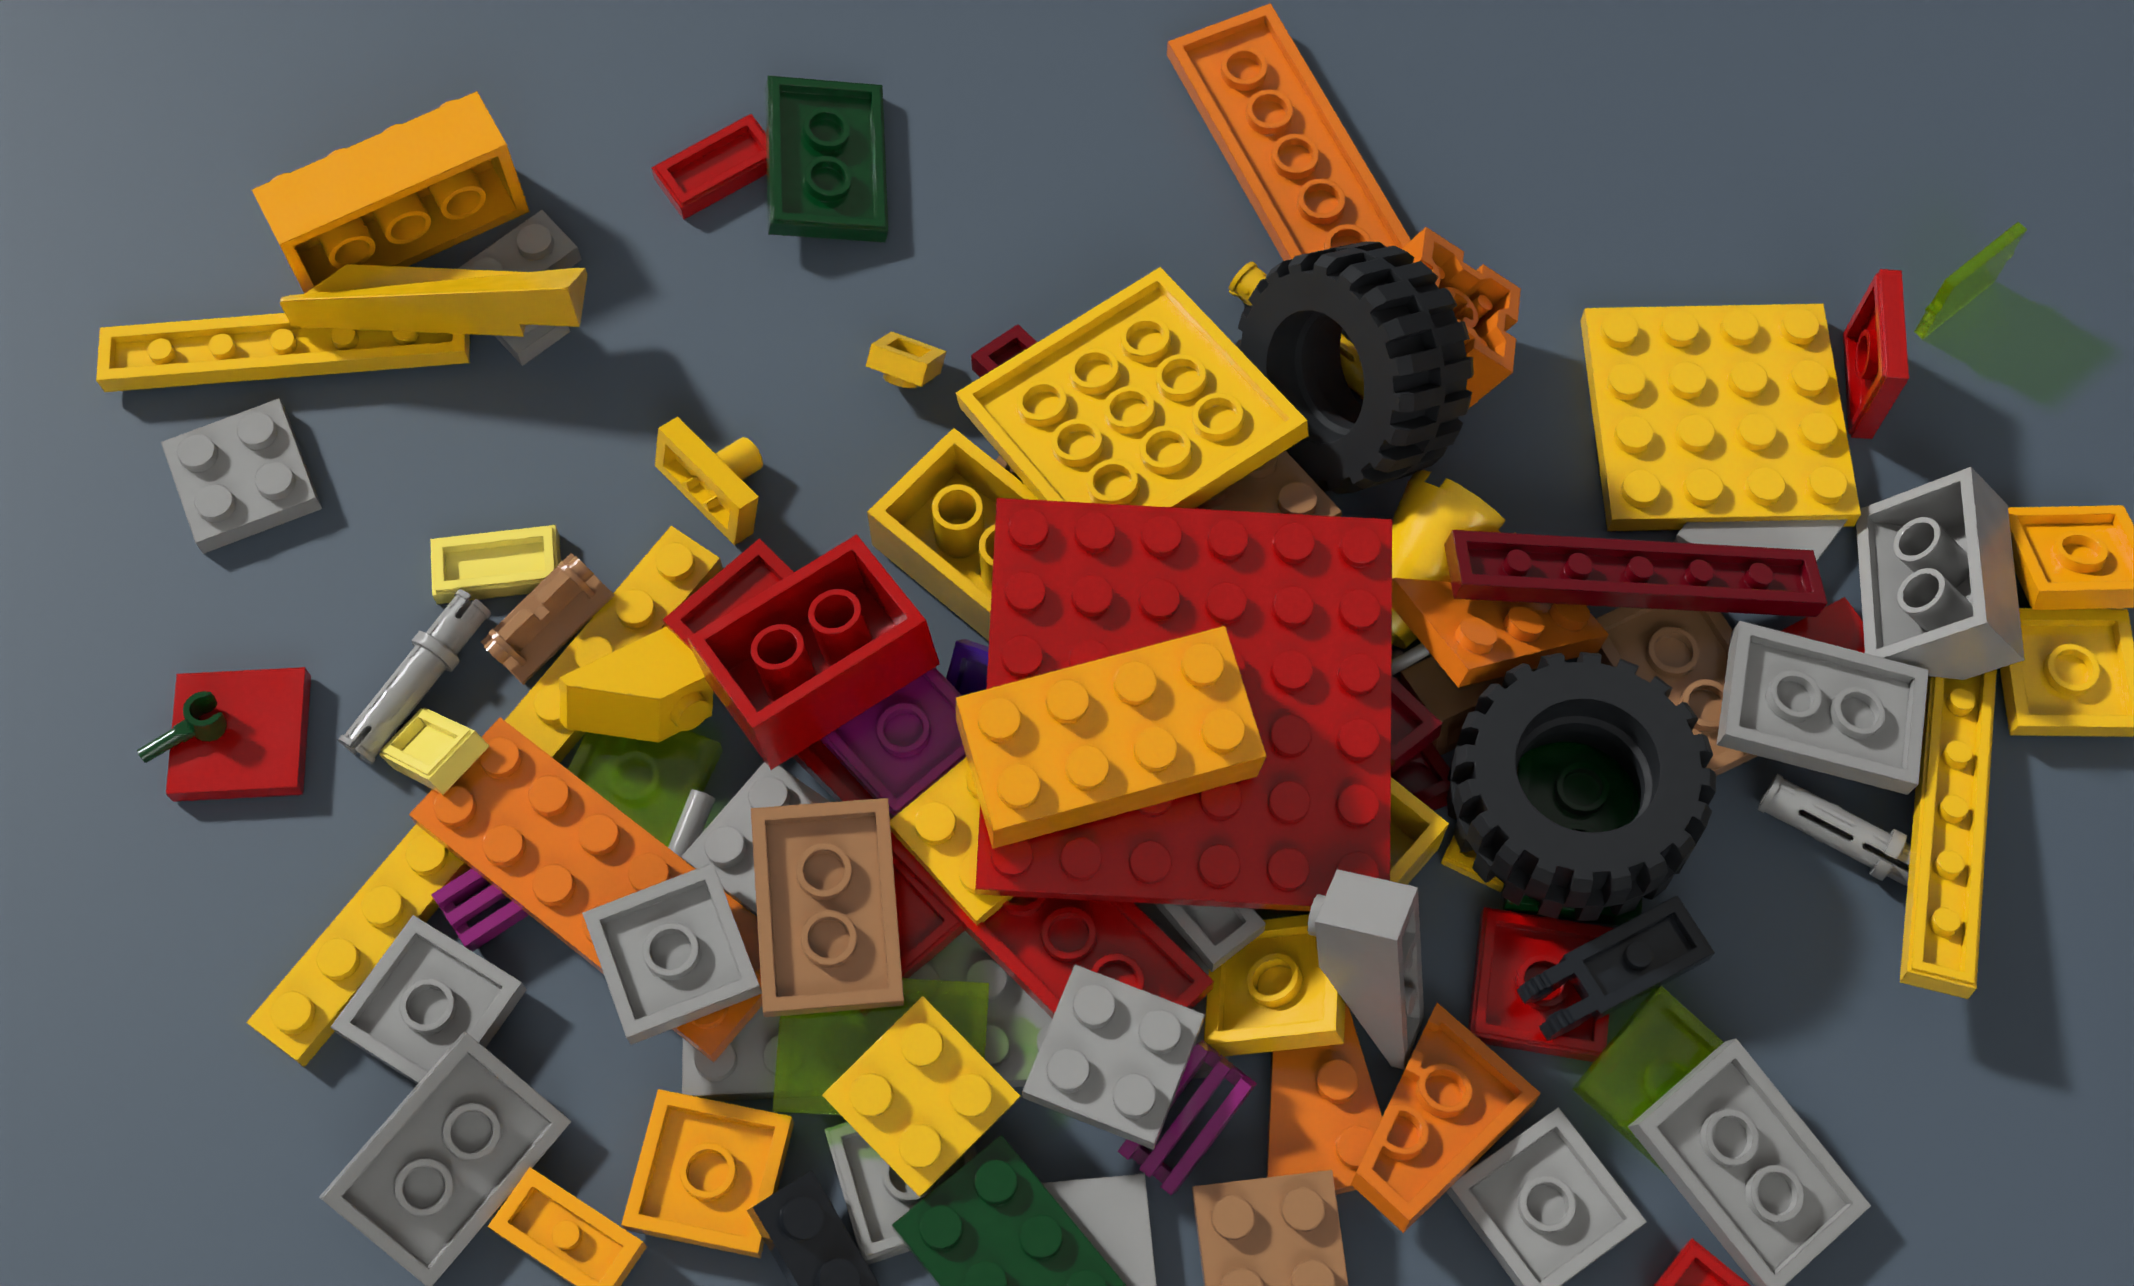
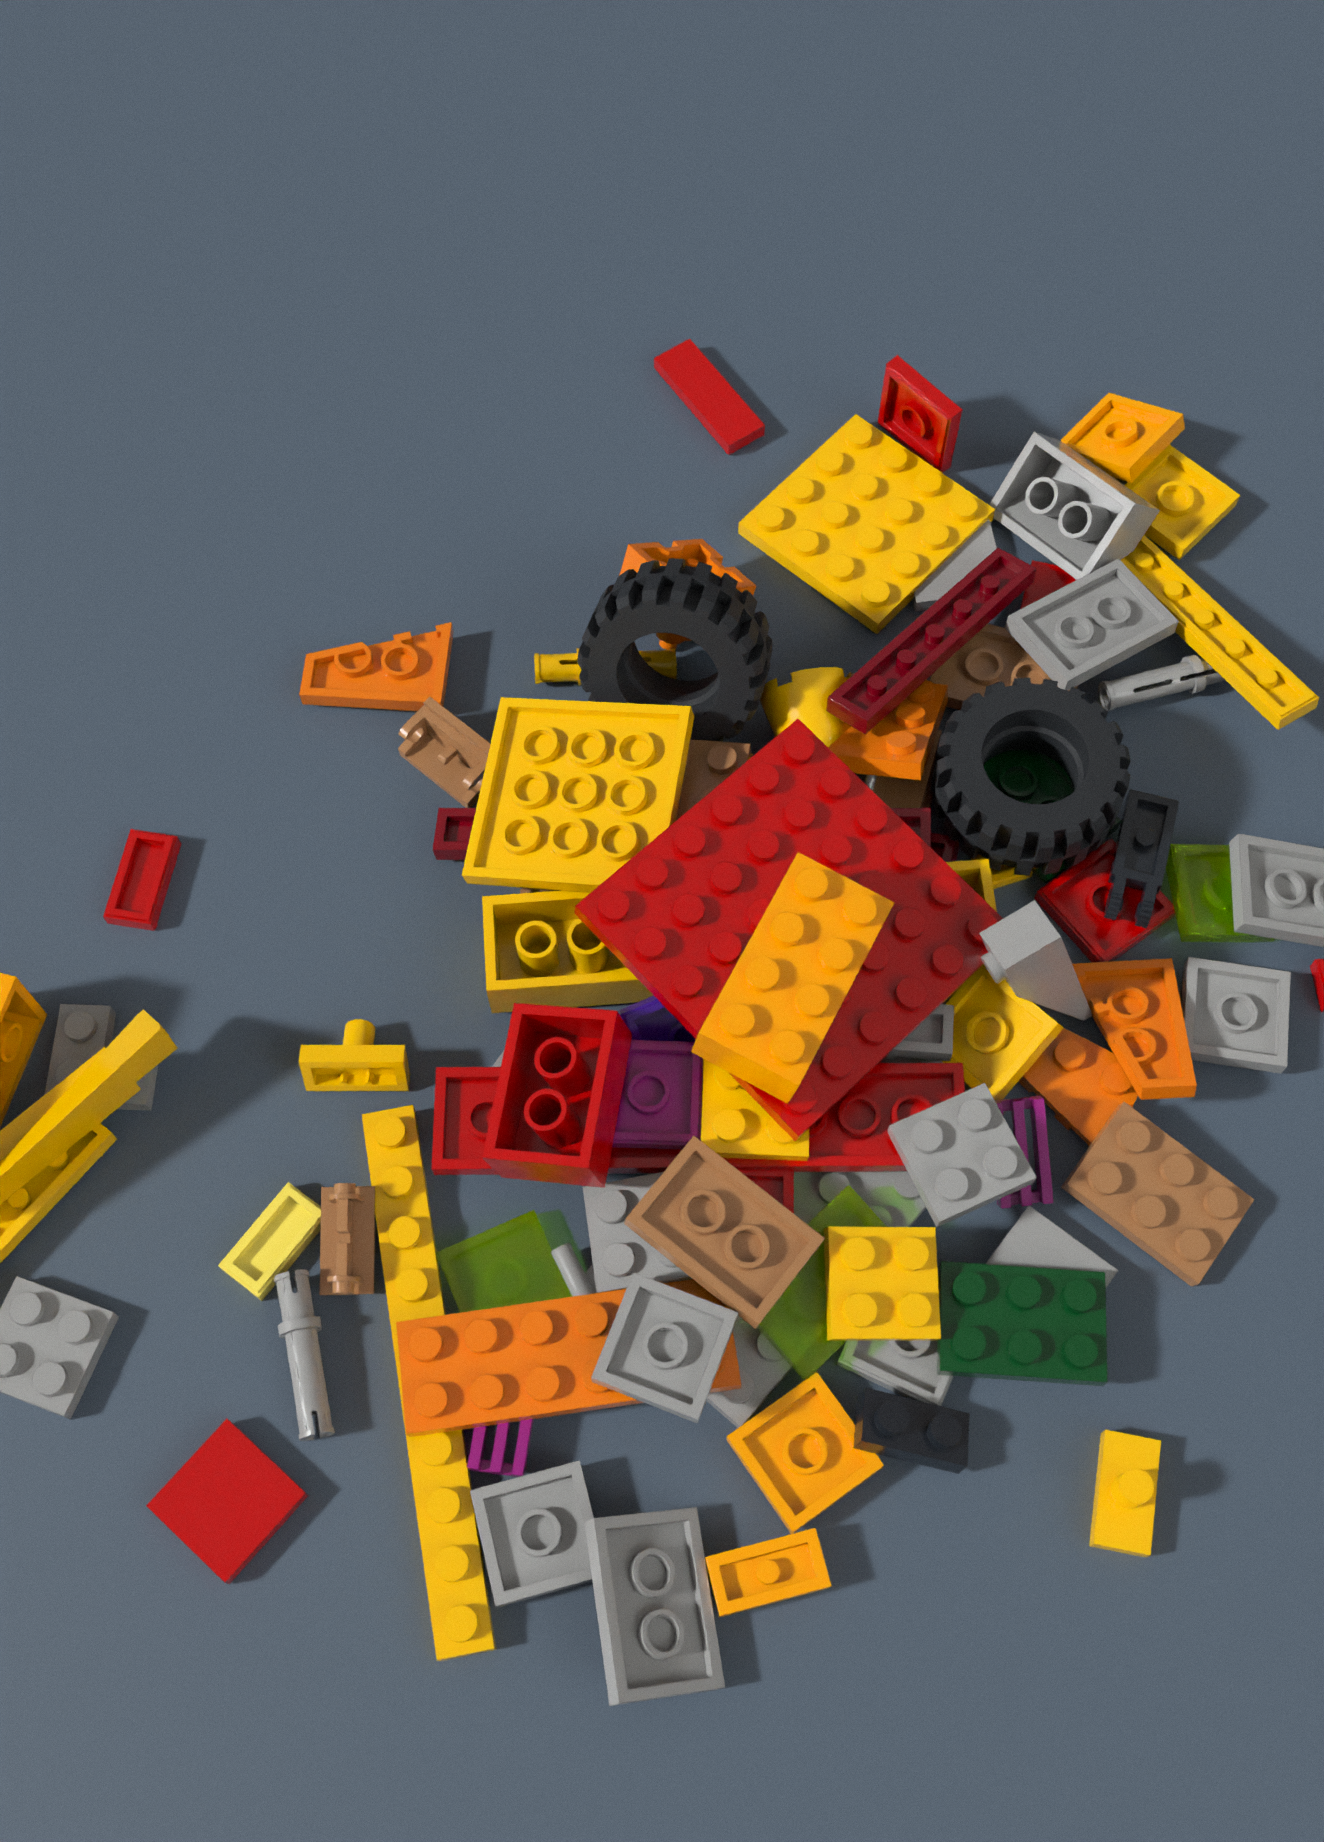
camera: 45 degrees left, 0 degrees up
(204, 730) = (196, 1530): dark green hand -> none
(433, 750) = (374, 1382): light yellow tile -> none
(638, 691) = (462, 1223): yellow slope -> none
(826, 159) = (210, 815): dark green tile -> none
(905, 360) = (395, 888): yellow plate -> none
(1078, 269) = (445, 751): none -> medium nougat hinge
(1104, 169) = (380, 675): none -> orange wing
(1282, 136) = (479, 573): orange plate -> none
(1695, 167) = (709, 396): none -> red tile
(1970, 280) = (920, 328): clear neon green piece -> none

